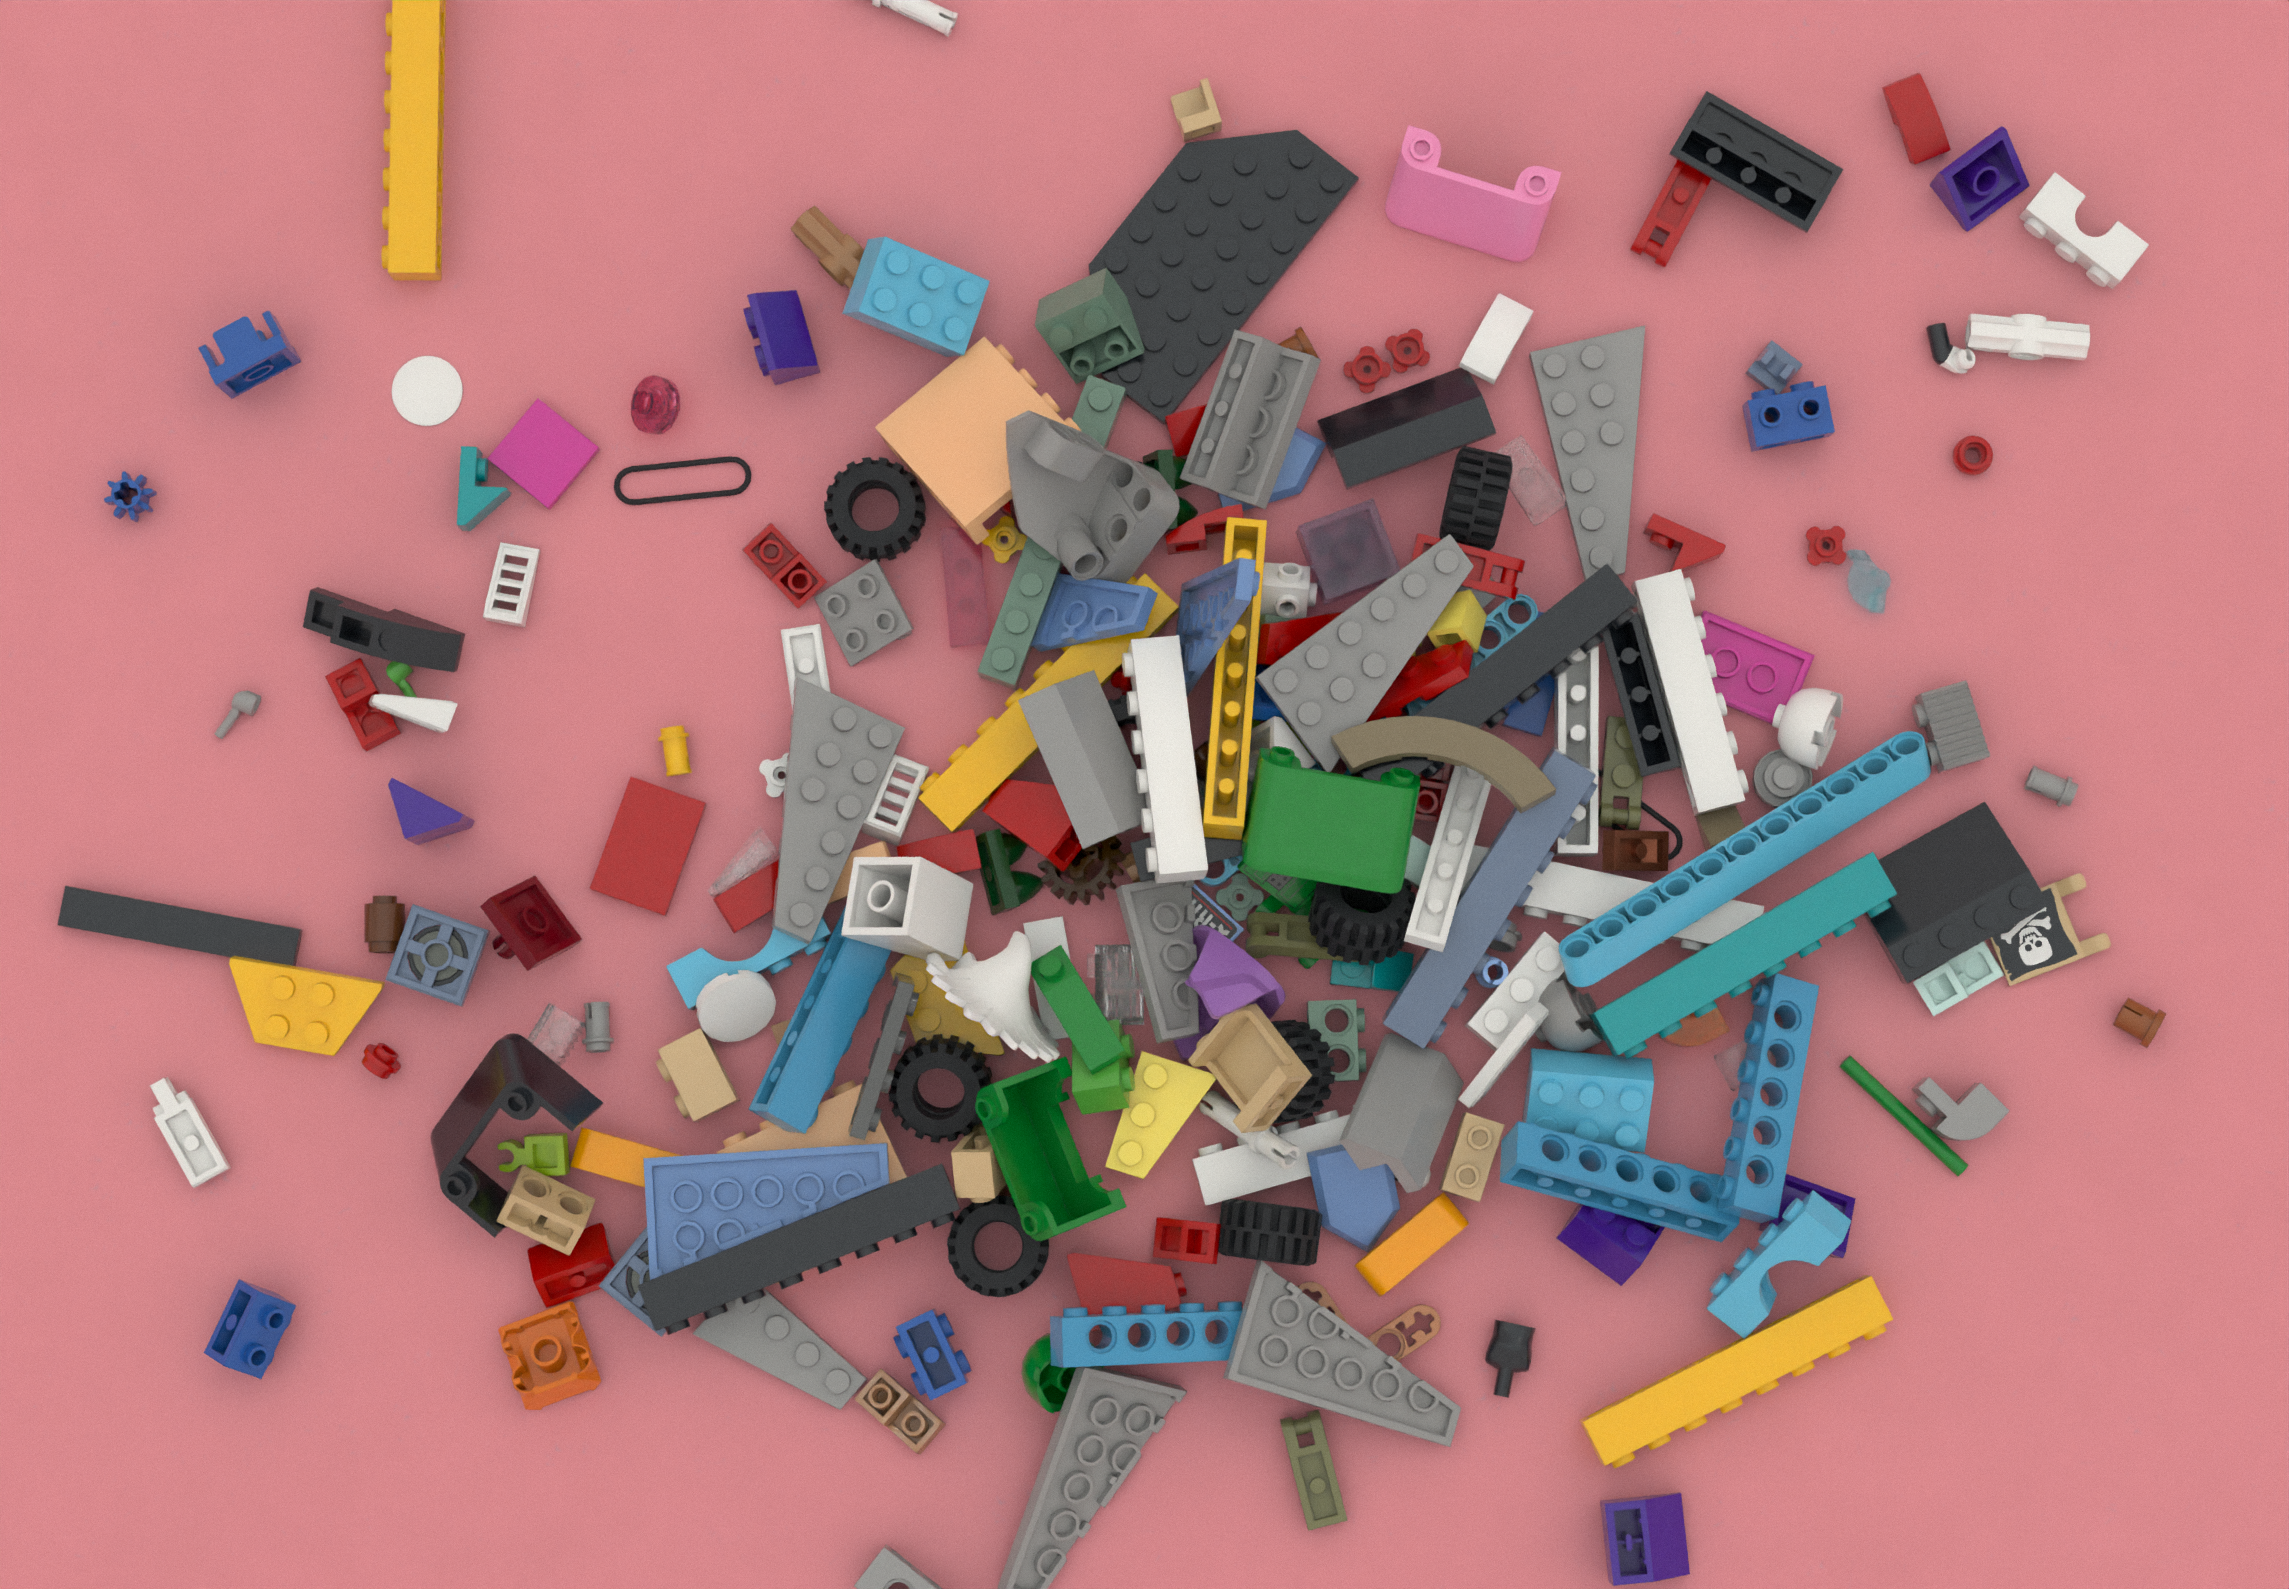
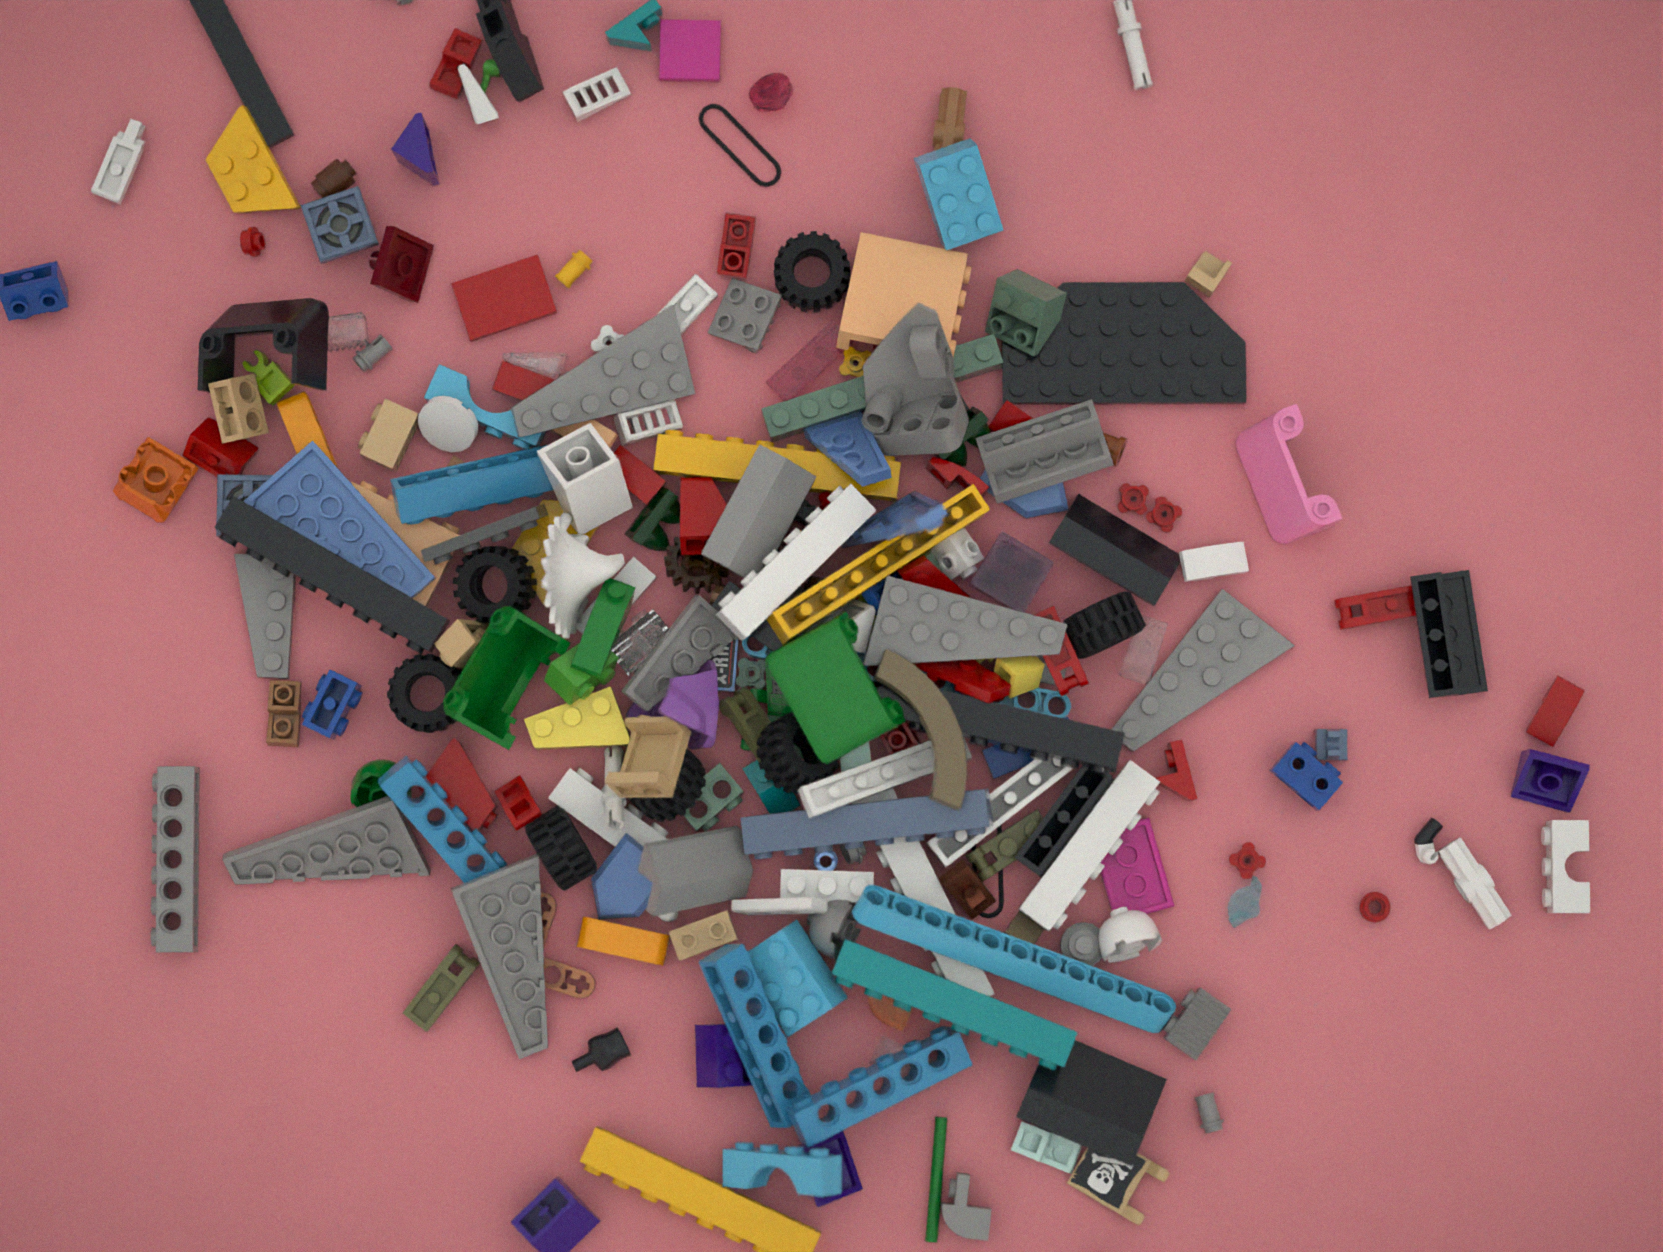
camera: 50 degrees right, 0 degrees up
(784, 336) = (872, 133): dark purple slope -> none

